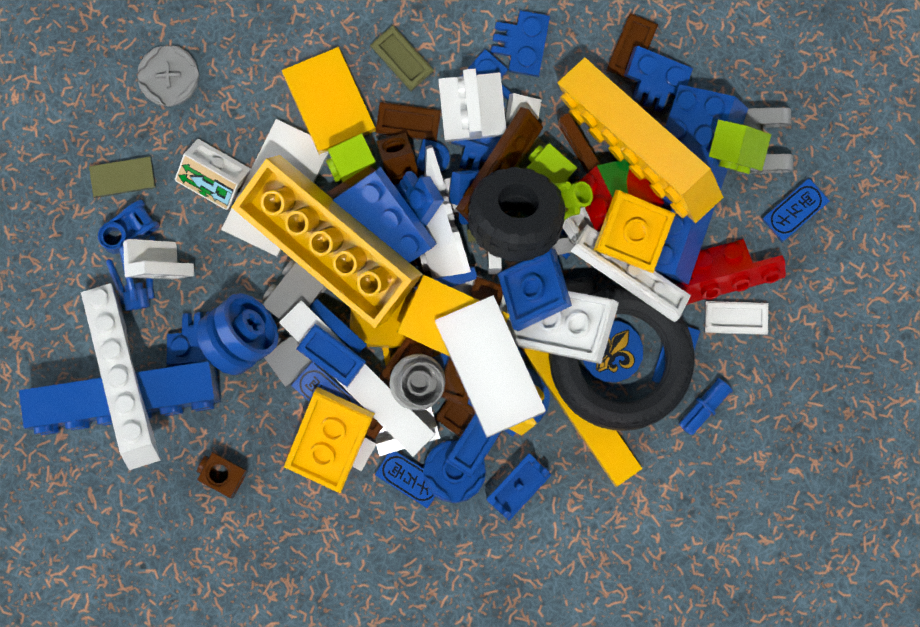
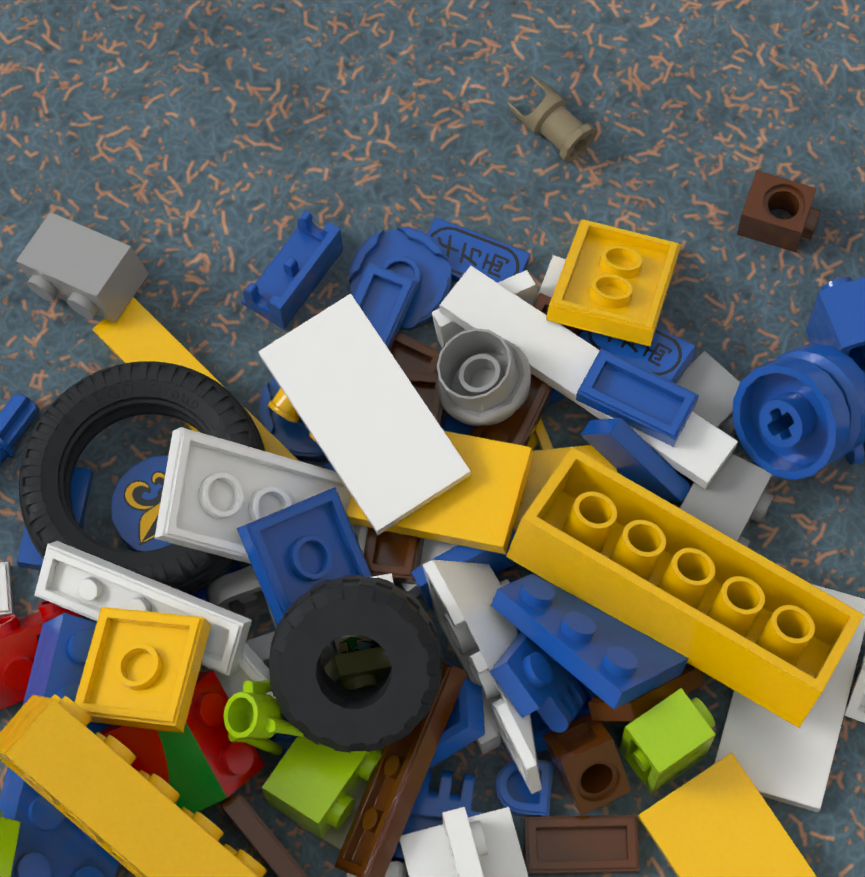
camera: 170 degrees right, 15 degrees down
(344, 560) = (557, 124): none -> dark tan piece
(644, 504) = (81, 268): none -> light grey brick

